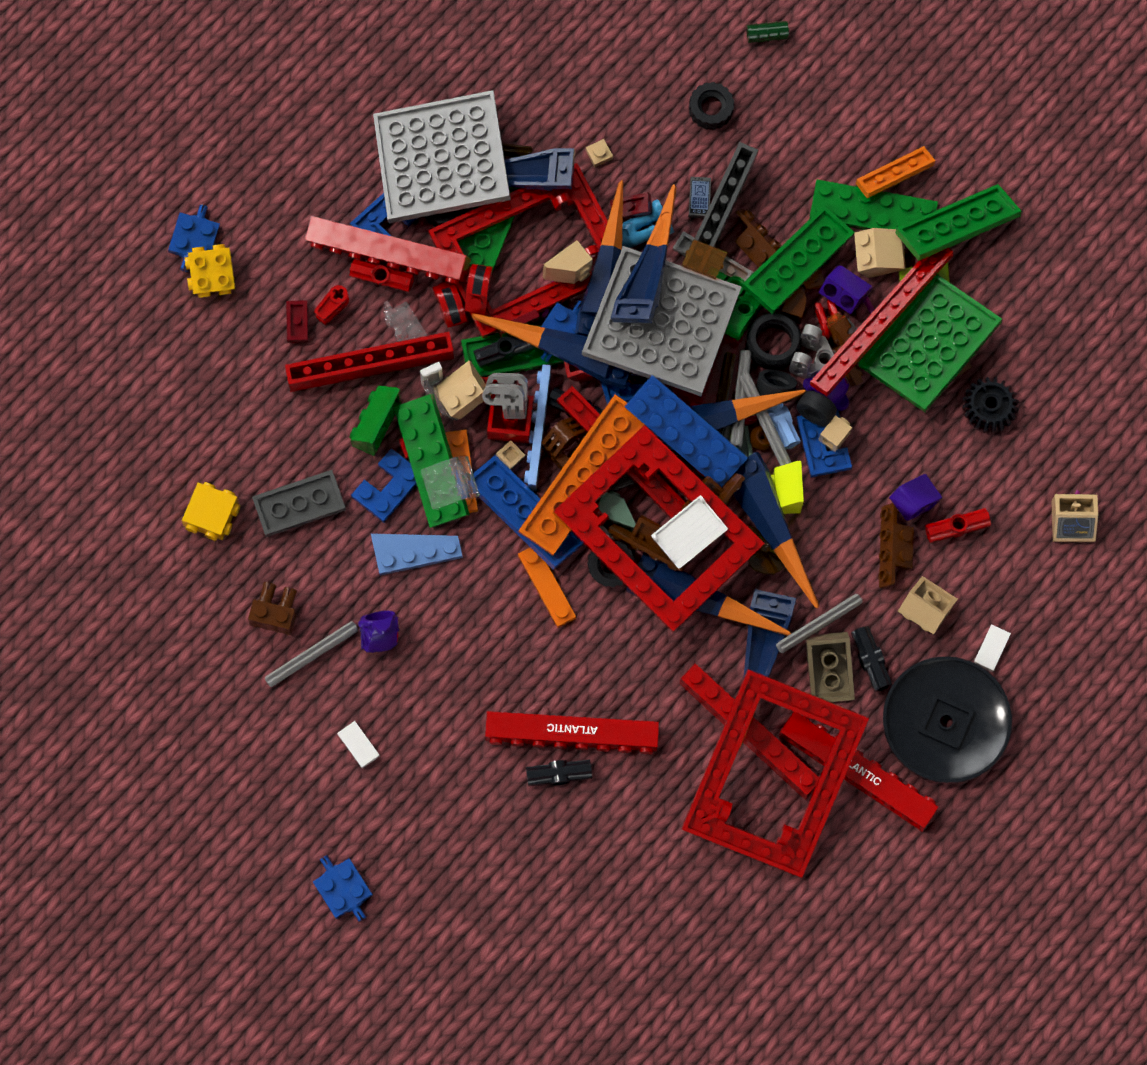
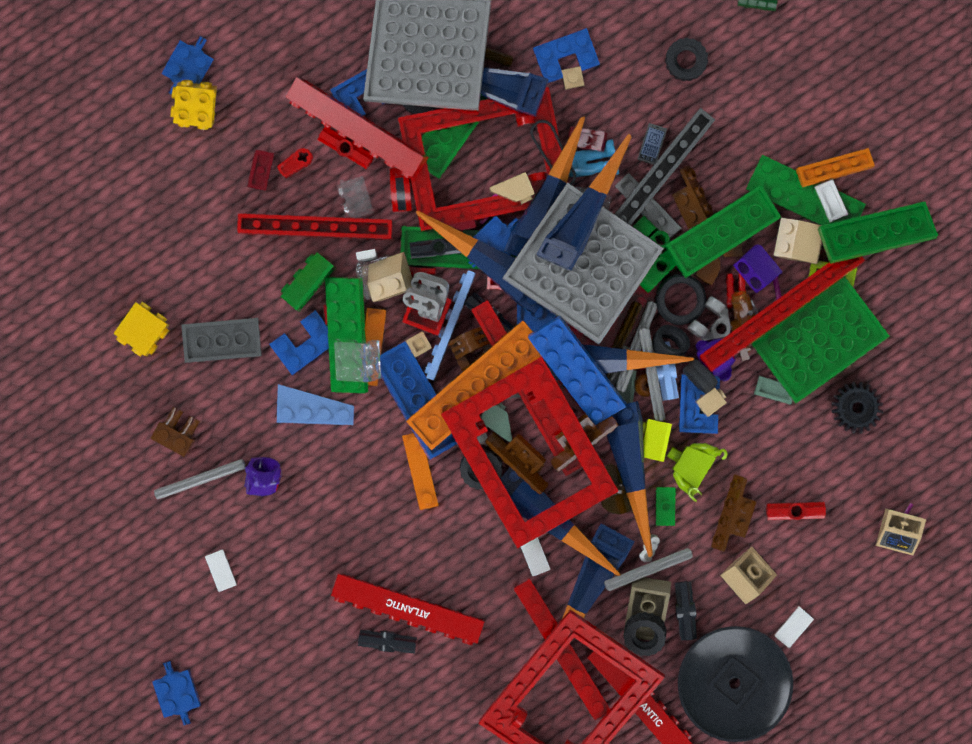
camera: 15 degrees right, 15 degrees up
(478, 288) = (427, 187): red brick -> none
(591, 119) = (575, 43): none -> blue plate
(600, 210) = (559, 142): none -> black piece
(689, 532) = (554, 465): white piece -> none
(693, 643) = (535, 557): none -> white tile
(704, 259) = (637, 213): clear orange piece -> none
(812, 612) = (654, 541): none -> white piece
(818, 557) = (665, 506): none -> green plate
(836, 505) = (693, 465): none -> lime torso
(837, 675) = (645, 620): none -> black tyre
(898, 411) = (771, 389): none -> sand green tile
(900, 204) = (831, 200): none -> white tile
(915, 497) = (765, 478): dark purple piece -> none

